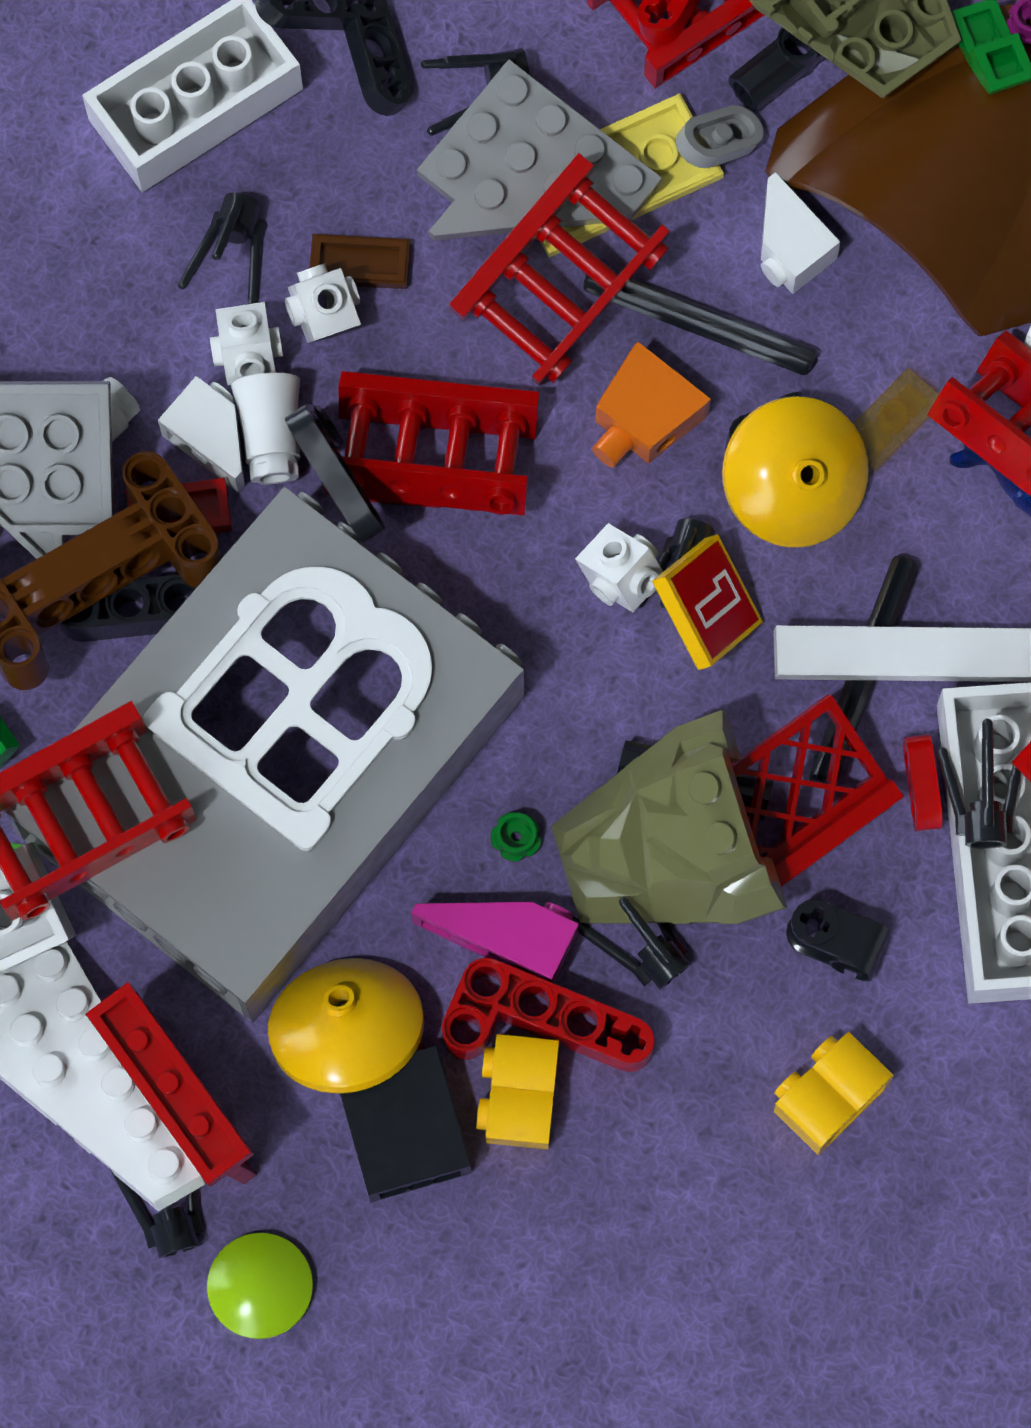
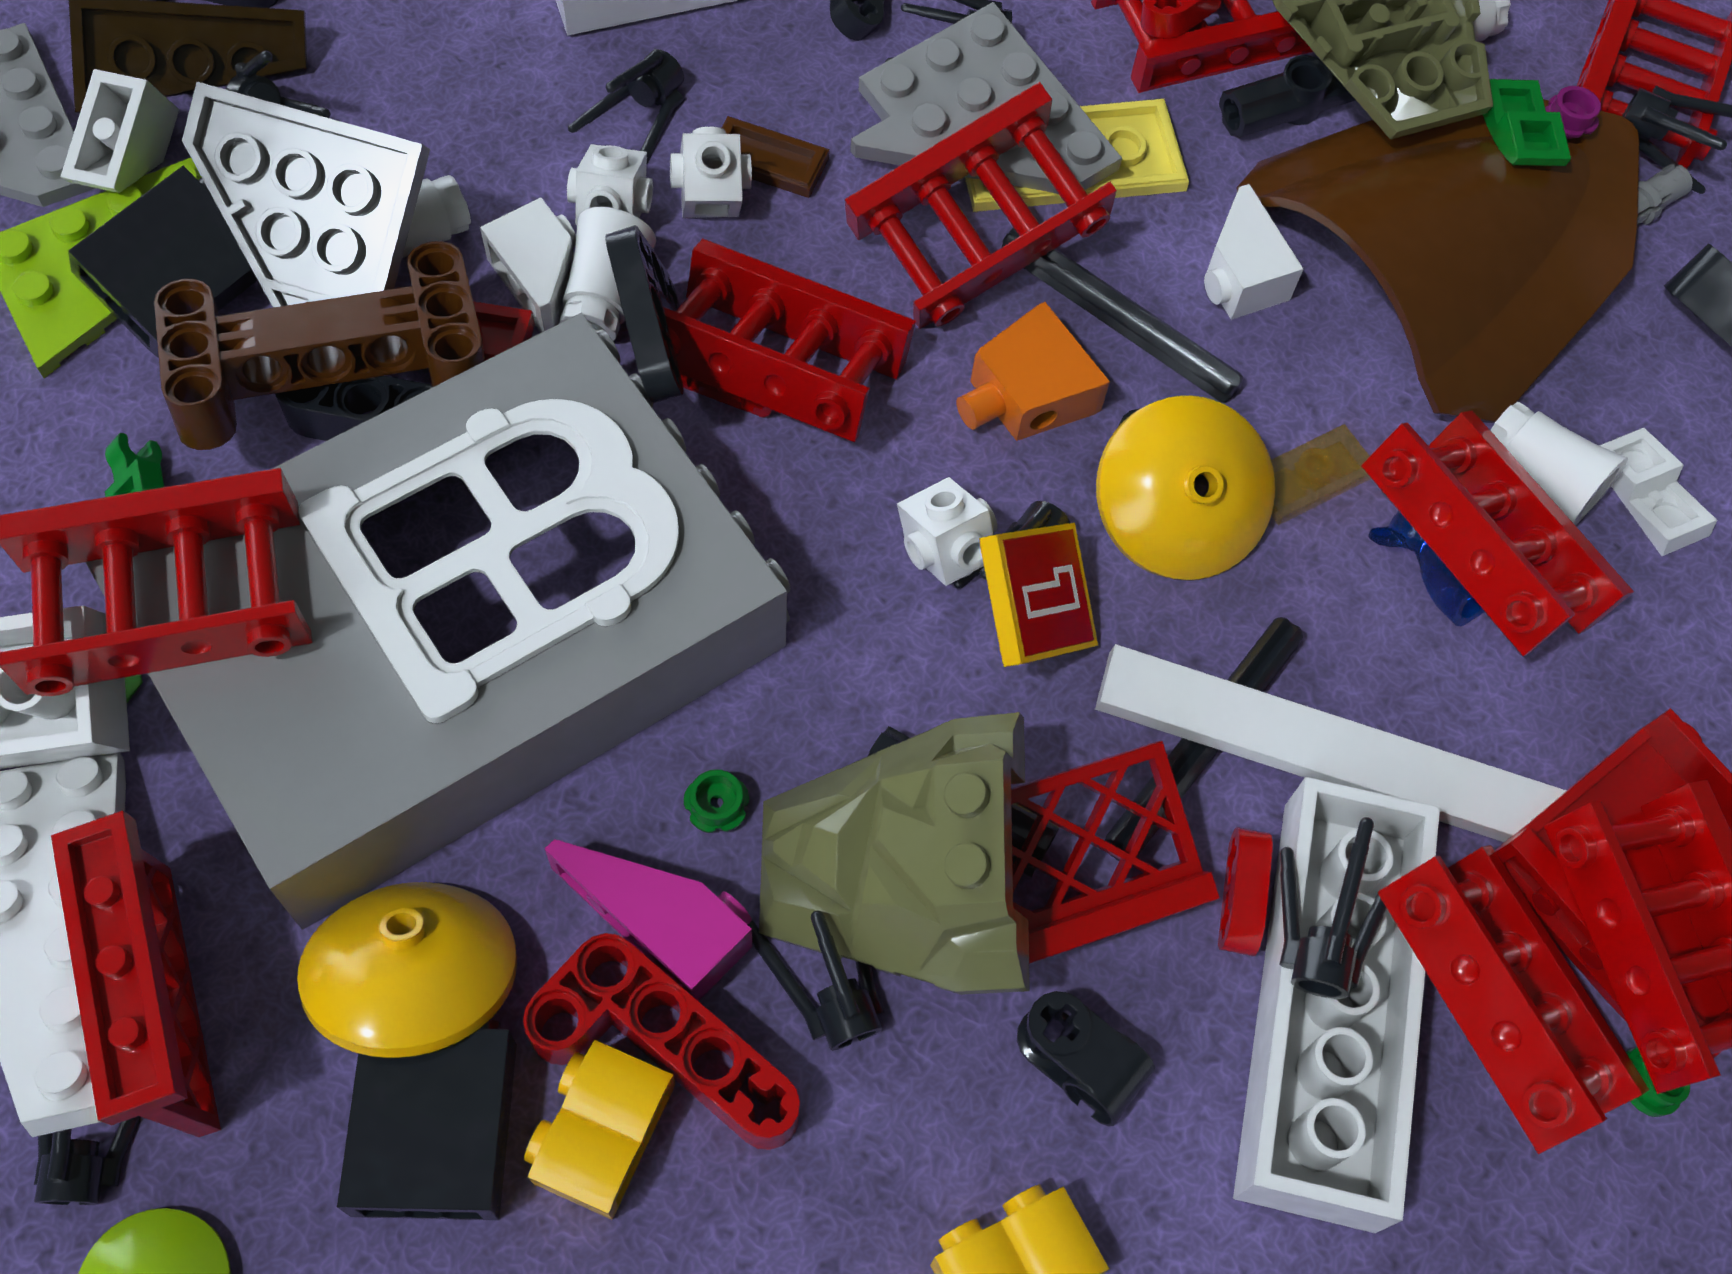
camera: 10 degrees right, 10 degrees down
(710, 140) = (1194, 140): light grey plate -> none

